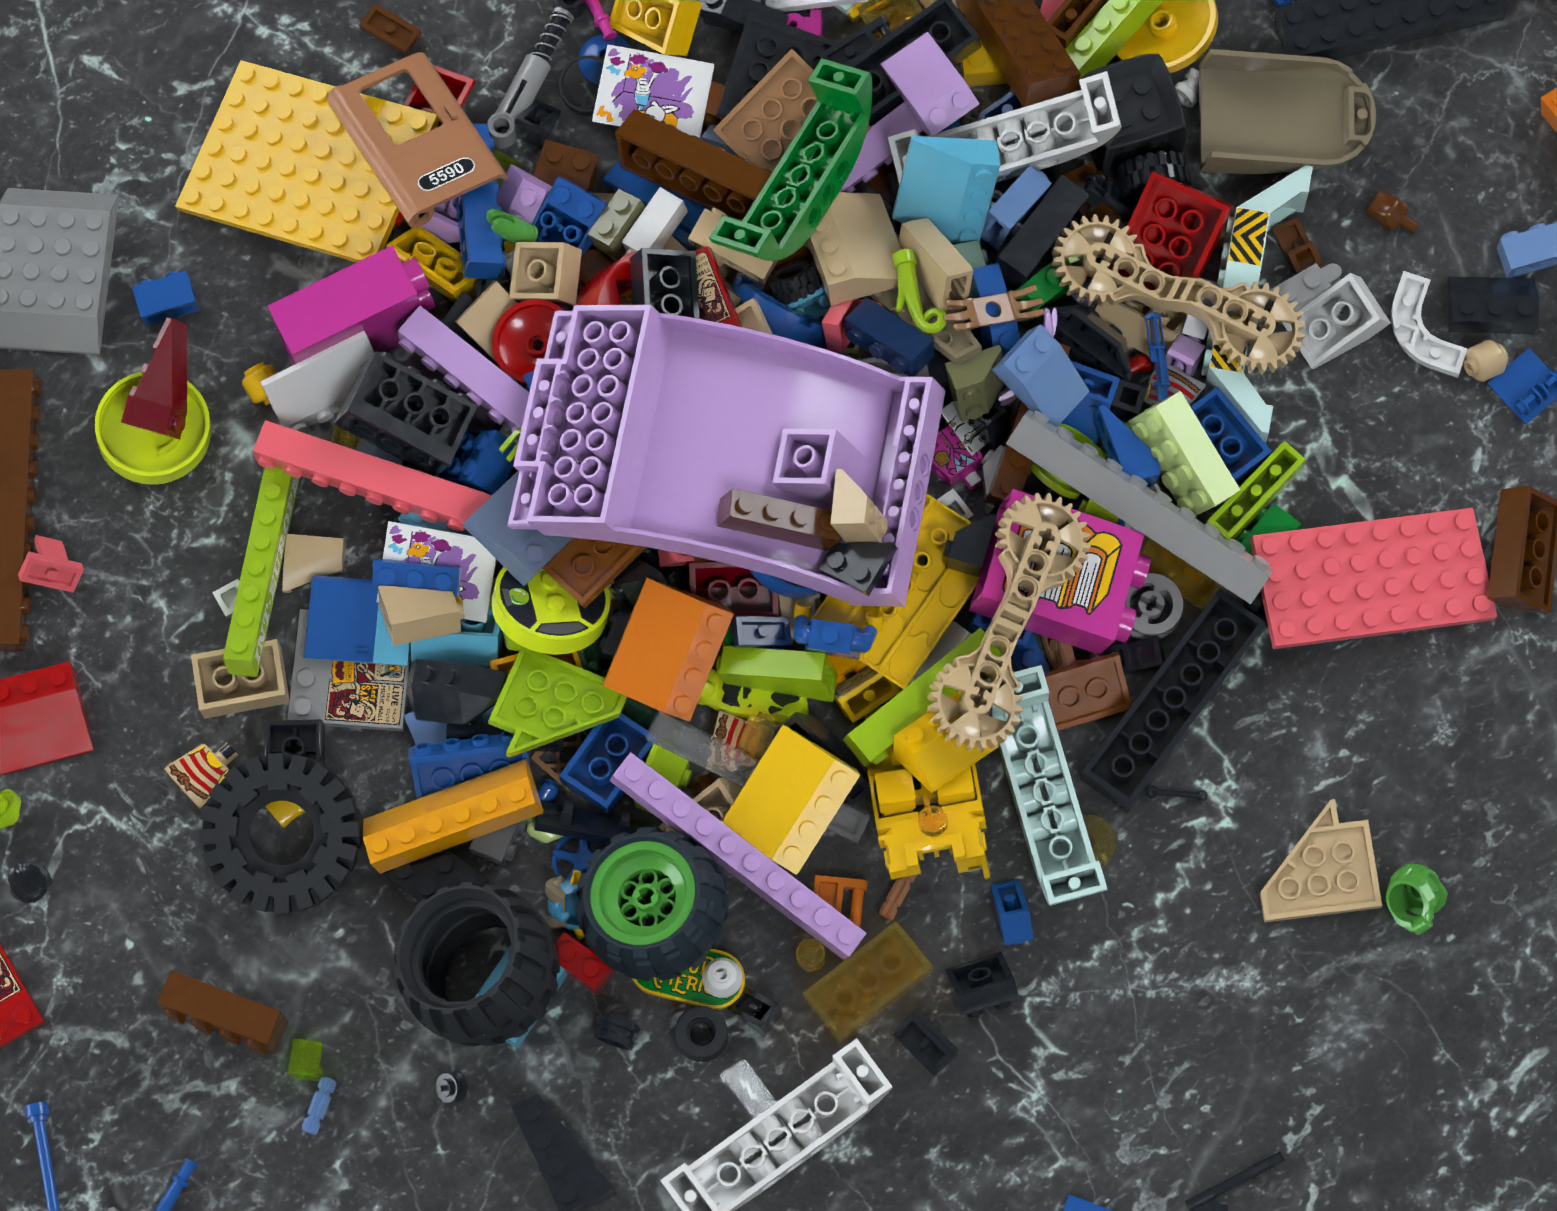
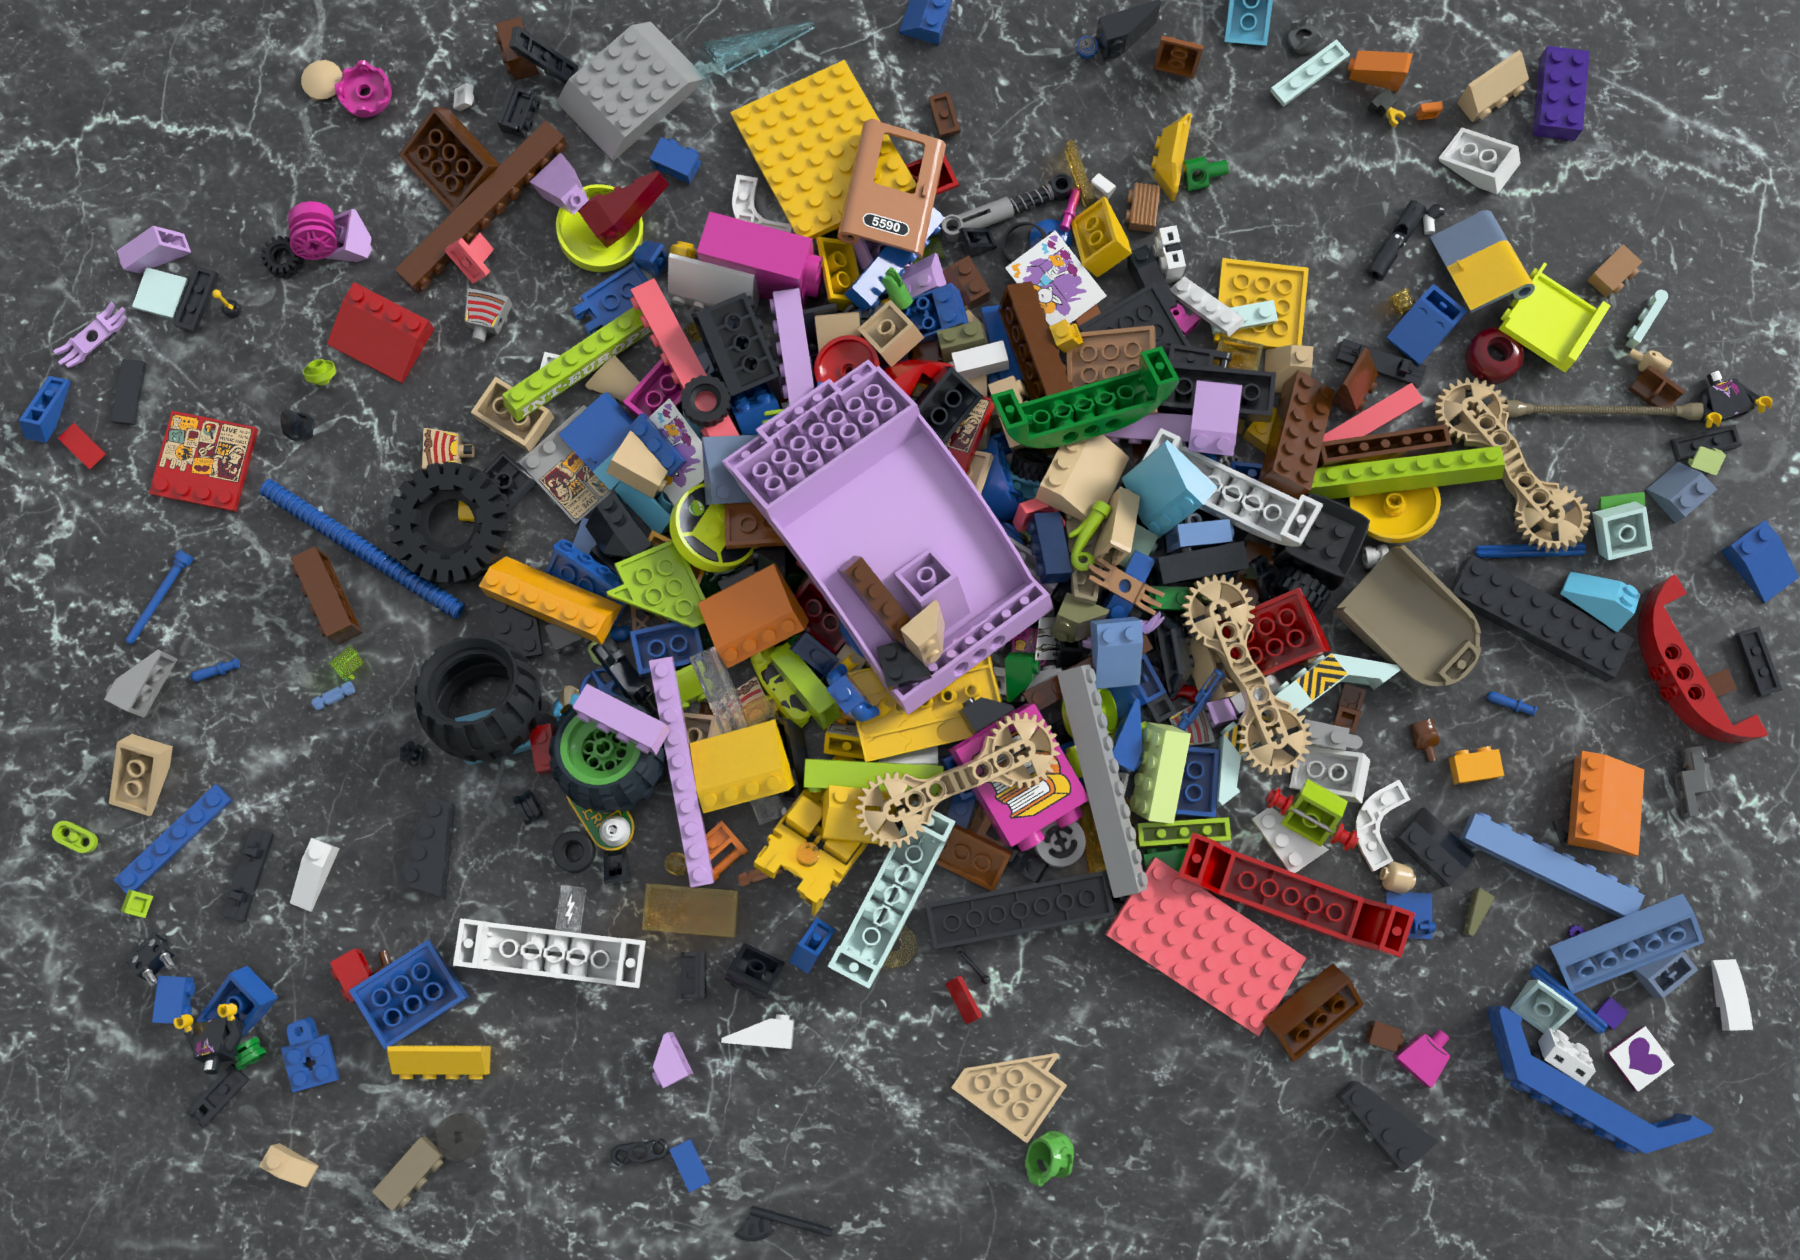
camera: 40 degrees right, 5 degrees up
(78, 418) = (560, 185): none -> lavender slope
(116, 607) = (485, 313): none -> light grey torso
(125, 138) = (737, 49): none -> clear light blue wedge
(210, 940) = (361, 548): none -> blue piece
(230, 484) = (609, 298): none -> blue tile
(232, 410) = (651, 257): none -> blue slope
(274, 280) = (744, 204): none -> white plate
(363, 533) = (653, 391): none -> dark pink slope
(430, 468) = (700, 384): none -> black tyre
(642, 848) = (620, 719): none -> lavender brick
(717, 130) = (1066, 335): none -> yellow brick
(968, 481) = (1020, 671): none -> green slope
(984, 1137) = (670, 1062): none -> lavender slope
(1050, 1027) = (769, 1033): none -> white slope
(1199, 831) = (963, 1000): none -> red slope
(1355, 418) = (1290, 848): none -> white wing
(1358, 369) = (1314, 814): none -> lime brick
(1414, 458) = (1295, 898): none -> red slope
(1445, 110) = (1500, 699): none -> blue piece
(1460, 198) = (1477, 766): none -> light orange brick

